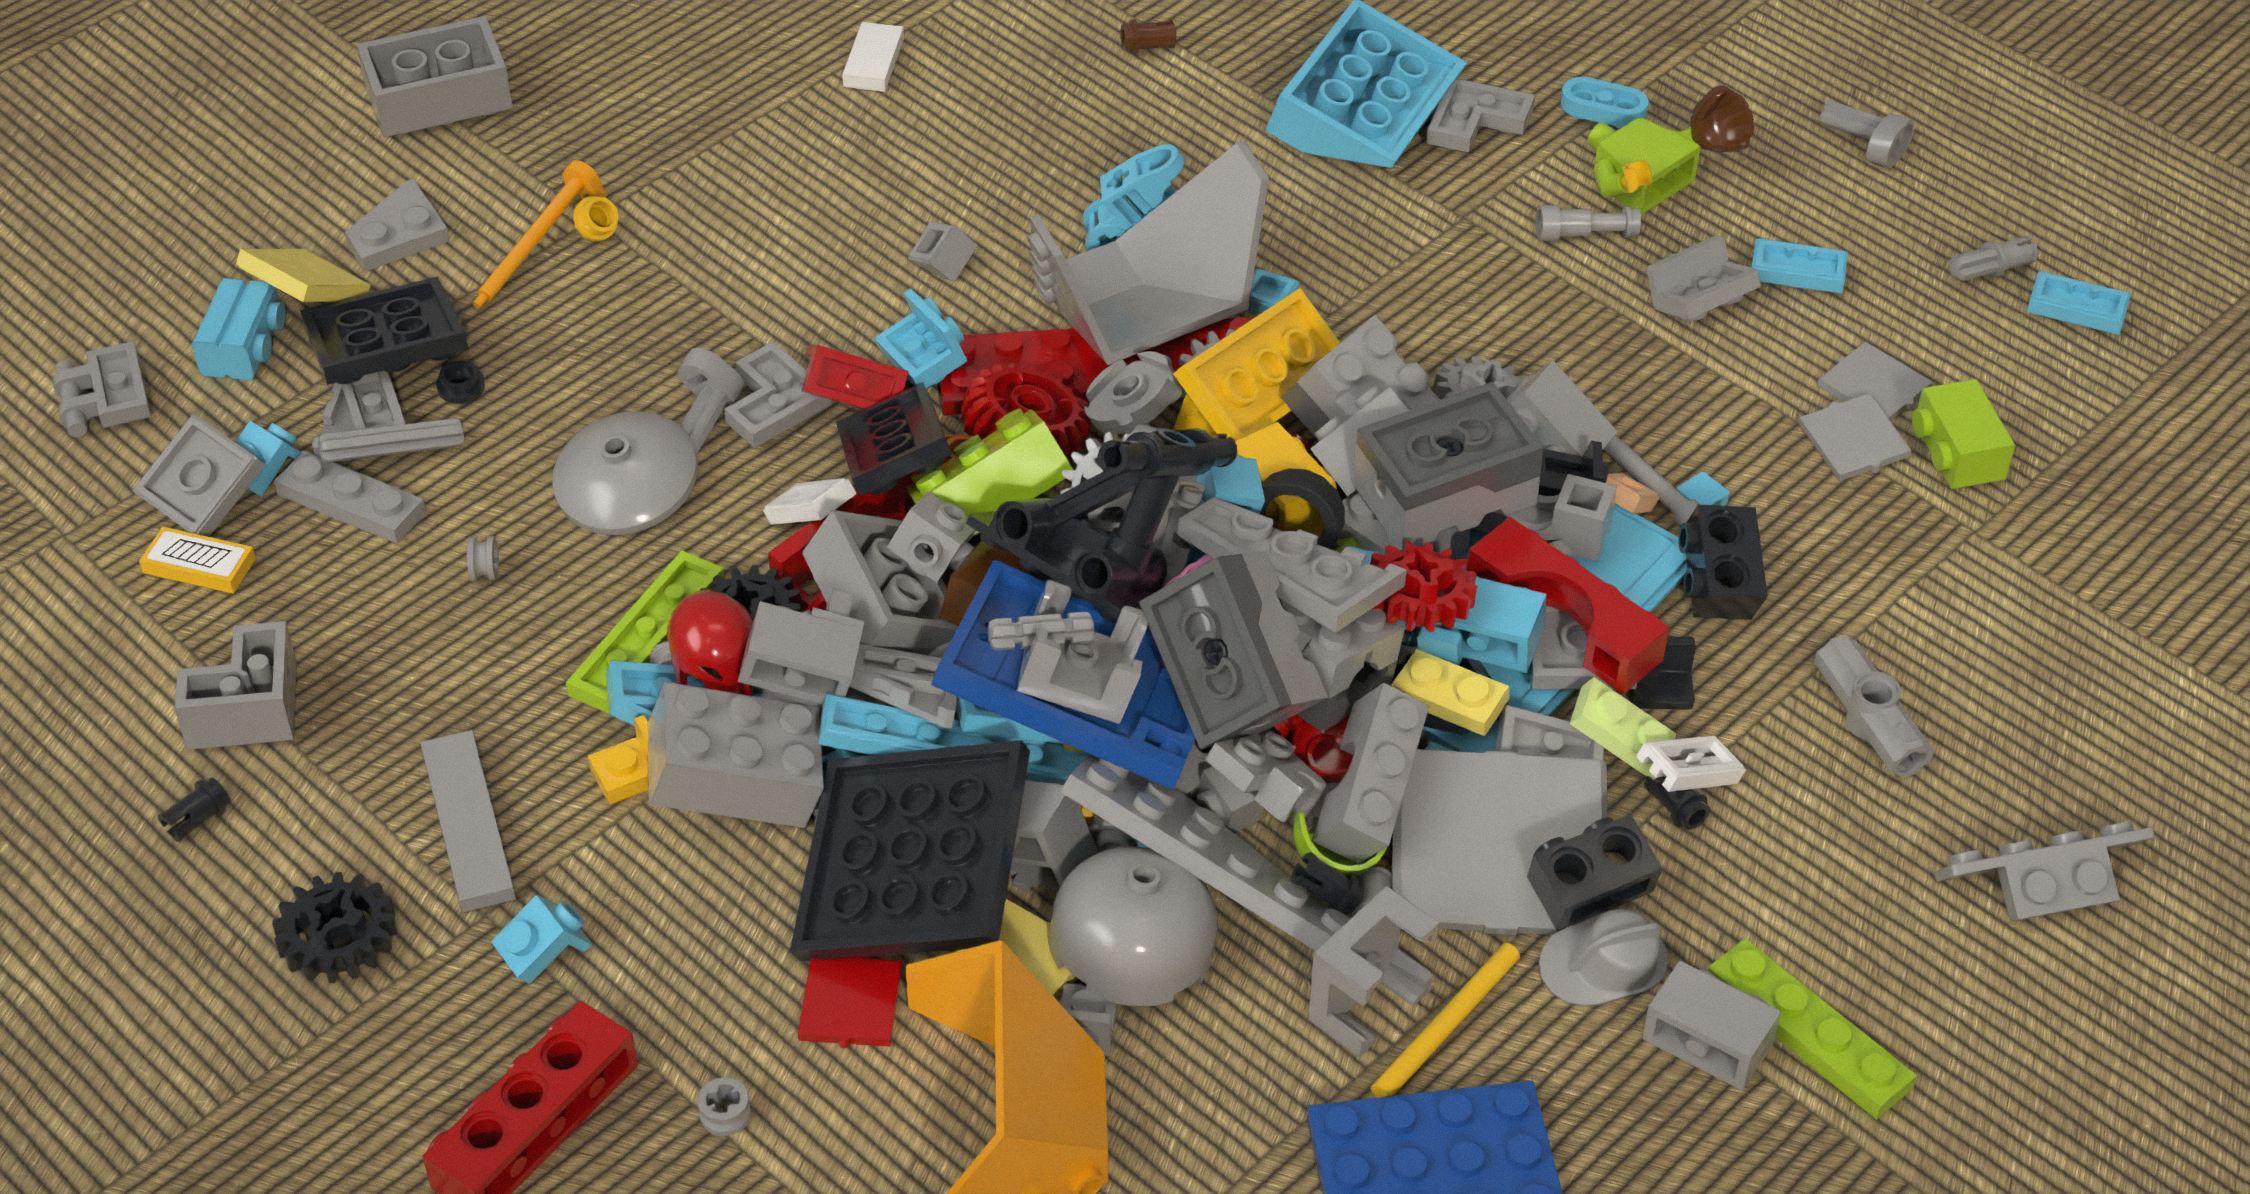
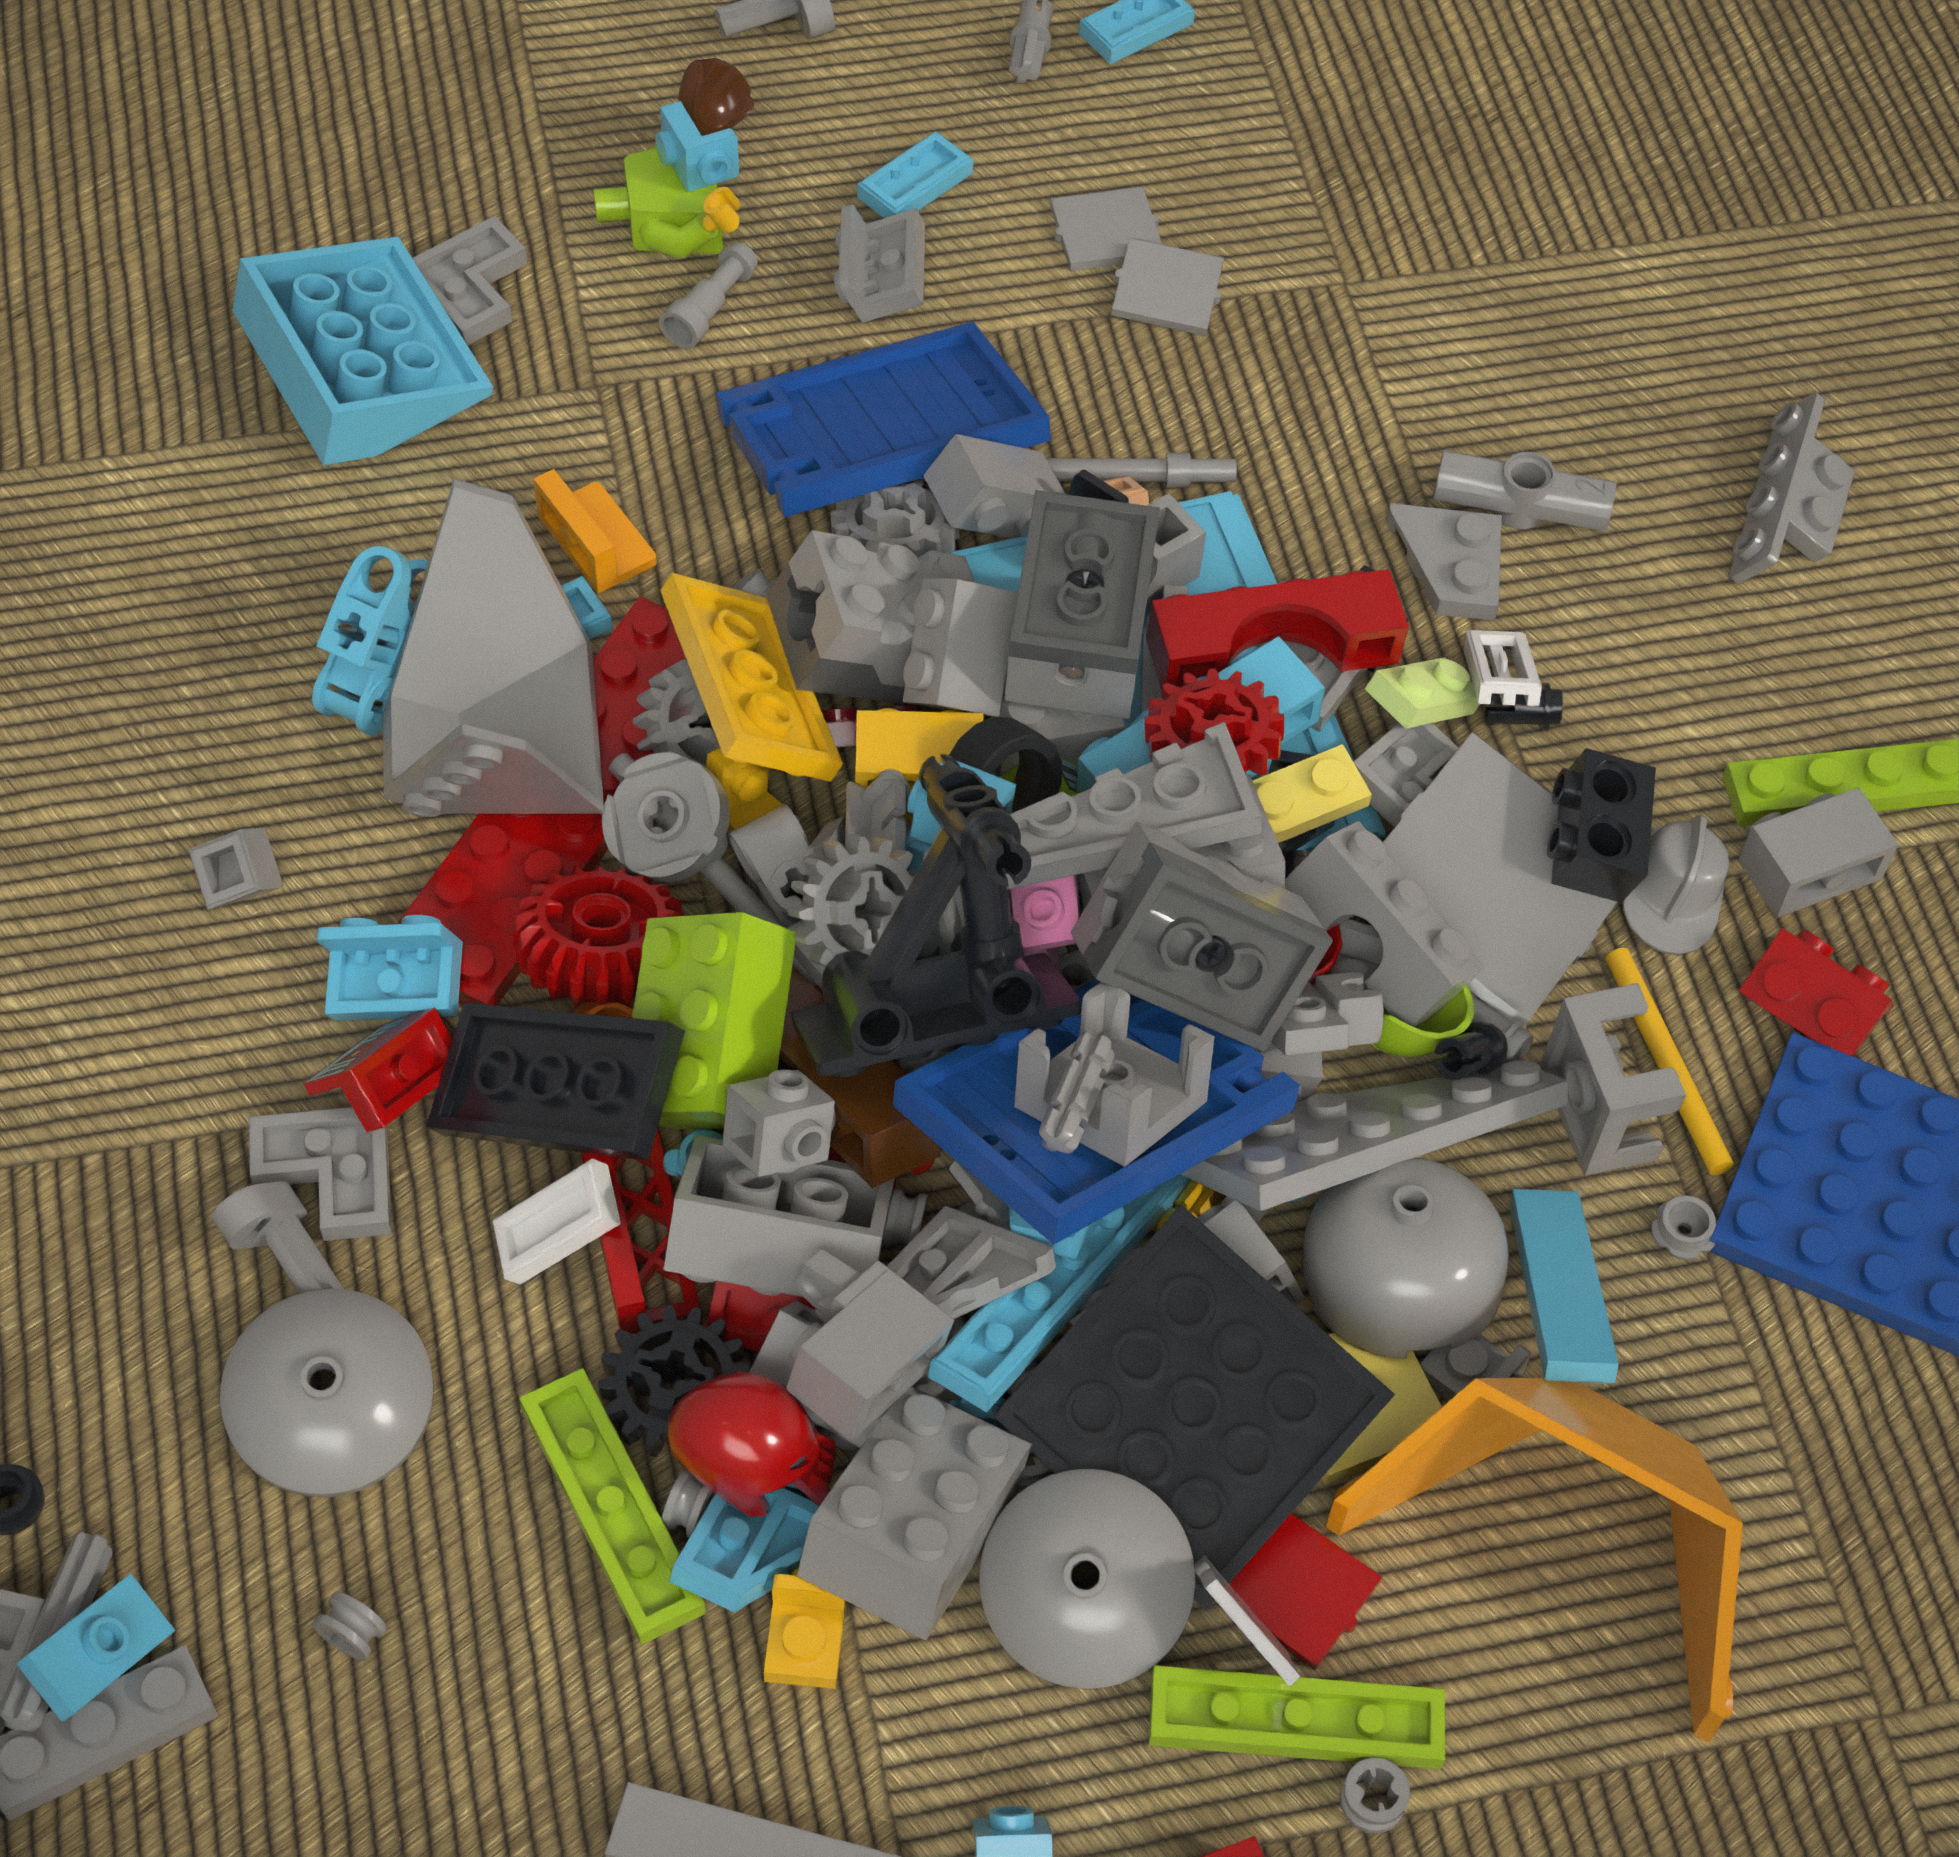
camera: 60 degrees left, 10 degrees up
(388, 456) = (95, 1647): none -> medium azure plate
(748, 1036) = (1297, 1721): none -> lime plate
(762, 875) = (1100, 1632): none -> light grey dish
(779, 955) = (1246, 1620): none -> piece
(1147, 35) = (56, 484): reddish brown pin -> none
(1175, 1015) = (1563, 1287): none -> medium azure tile
(1305, 1076) = (1689, 1213): none -> light grey plate
(1338, 270) = (592, 531): none -> light orange panel
(1529, 322) = (877, 416): none -> blue door
(1585, 1081) = (1816, 994): none -> red bracket
(1603, 101) = (549, 171): medium azure plate -> none
(1665, 139) = (696, 158): none -> medium azure bracket
(1704, 490) = (1148, 440): medium azure piece -> none
(1733, 562) = (1278, 480): black brick -> none
(1778, 702) = (1453, 557): none -> light grey wing
(1963, 434) = (1248, 206): lime brick -> none

